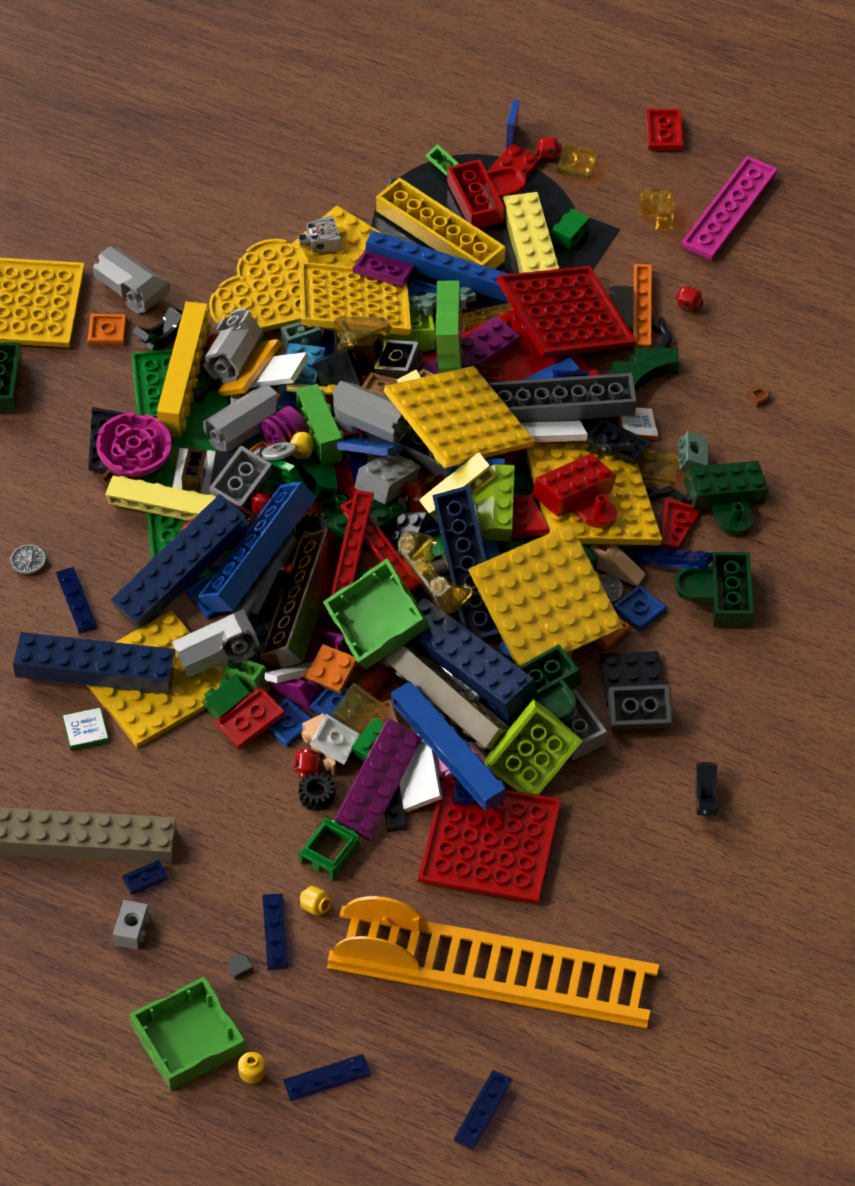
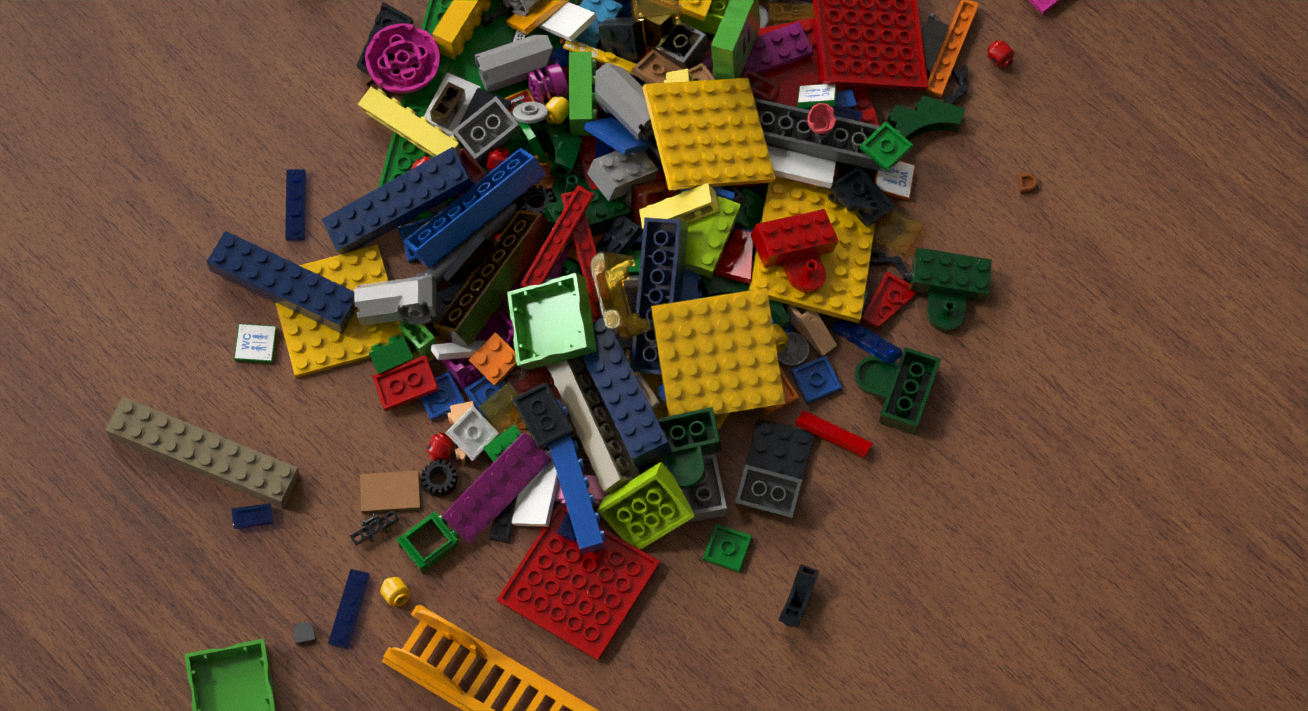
camera: 20 degrees right, 15 degrees up
(28, 559) = (267, 147): light grey wheel -> none
(127, 935) = (223, 549): light grey brick -> none
(263, 851) = (367, 528): none -> black piece
(272, 818) = (390, 491): none -> medium nougat tile
(400, 698) = (542, 415): none -> black tile
(541, 368) = (815, 94): none -> tile
(556, 379) = (821, 118): none -> coral hair
(619, 771) = (727, 548): none -> green tile
(625, 388) = (886, 146): none -> green tile
(676, 646) = (833, 433): none -> red tile
(692, 450) = (940, 222): sand green brick -> none

